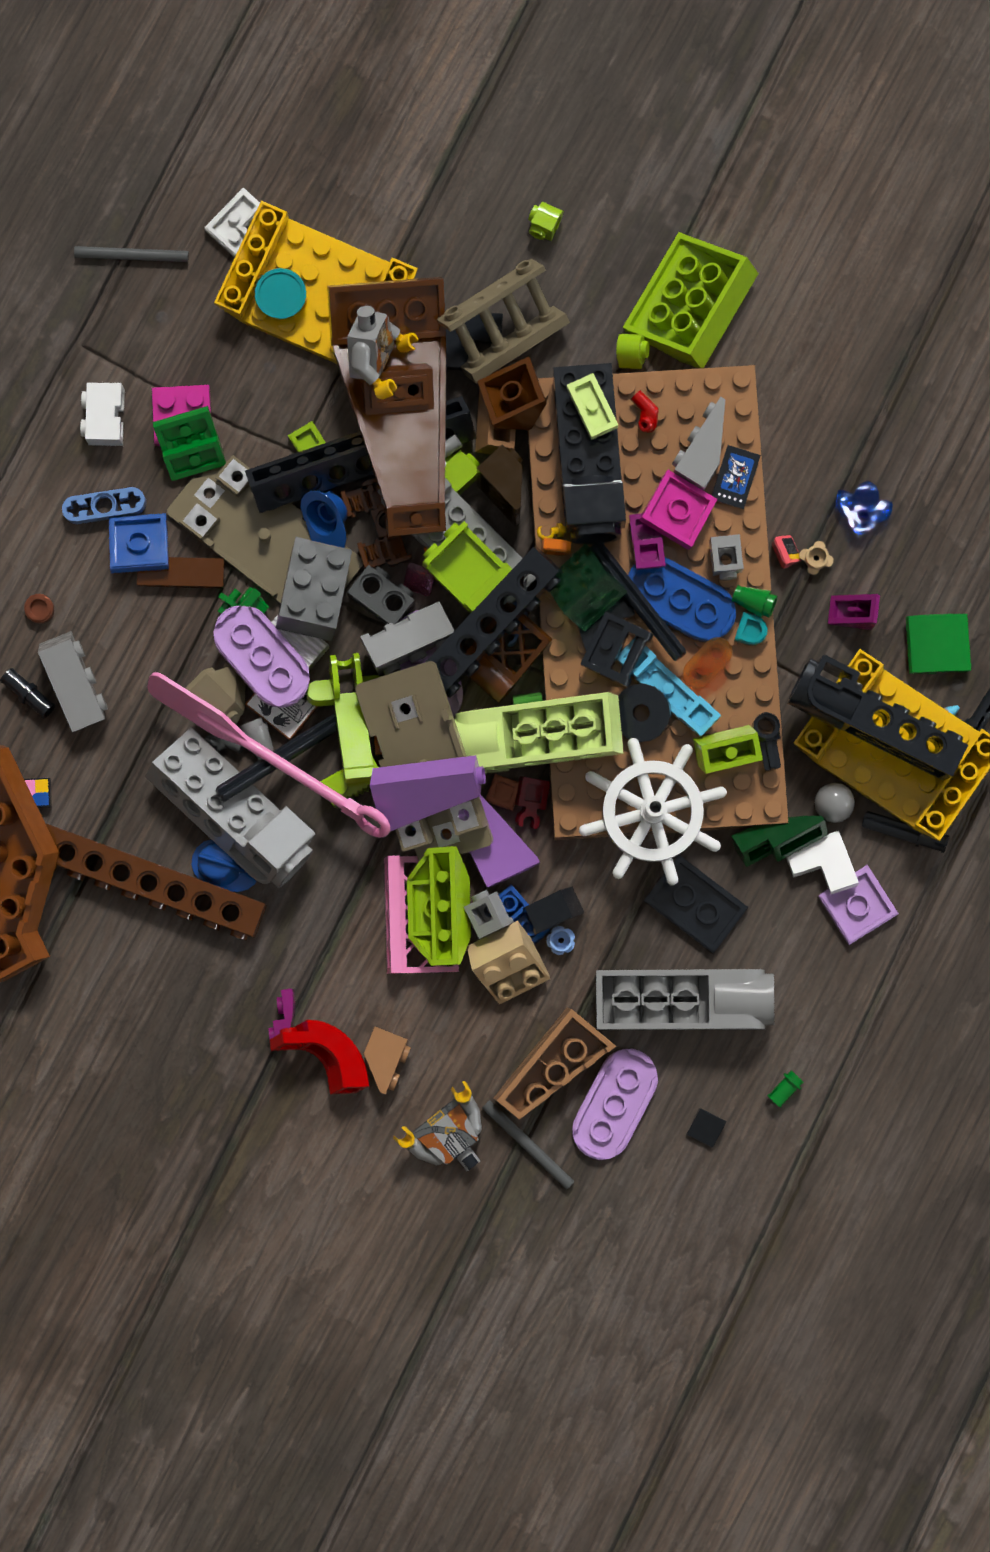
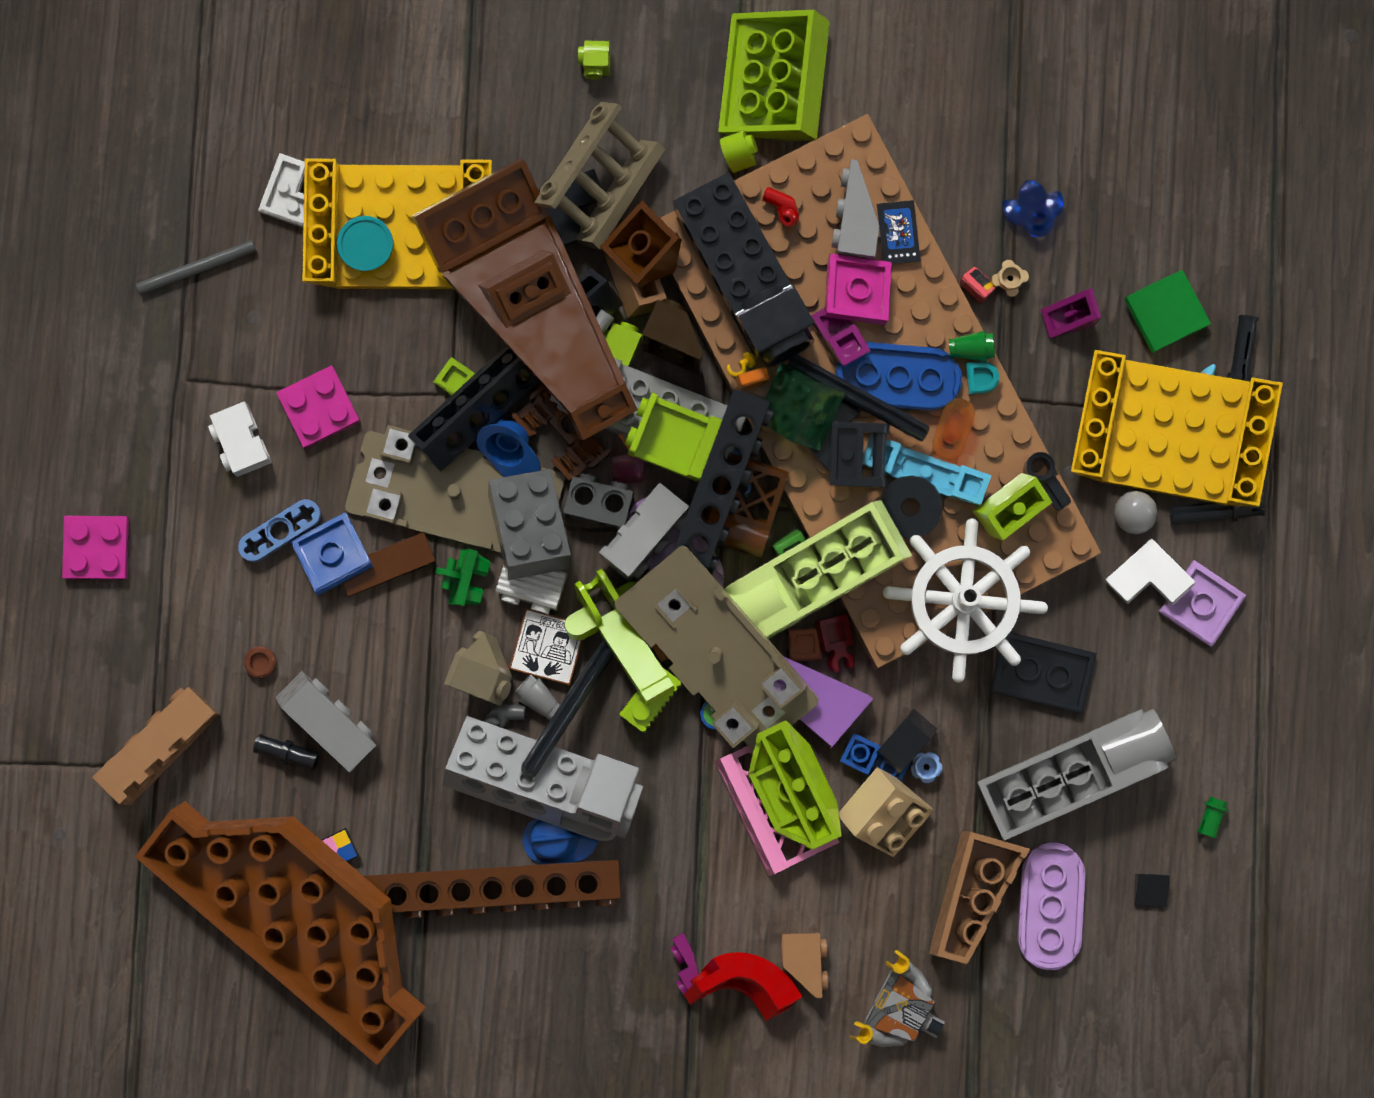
camera: 25 degrees left, 0 degrees up
(189, 443) = (339, 432): green slope -> none
(222, 727) = (496, 701): bright pink piece -> none
(261, 656) = (506, 614): lavender tile -> none
(370, 347) = (483, 258): light grey torso -> none
(425, 788) = (730, 677): medium lavender slope -> none
(483, 921) = (841, 781): light grey brick -> none
(527, 1144) = (983, 984): dark grey bar -> none
(592, 406) = (730, 223): yellowish green plate -> none
(728, 546) = (926, 304): light grey brick -> none
(778, 839) = (1097, 573): dark green slope -> none
(852, 711) = (1121, 414): black brick -> none

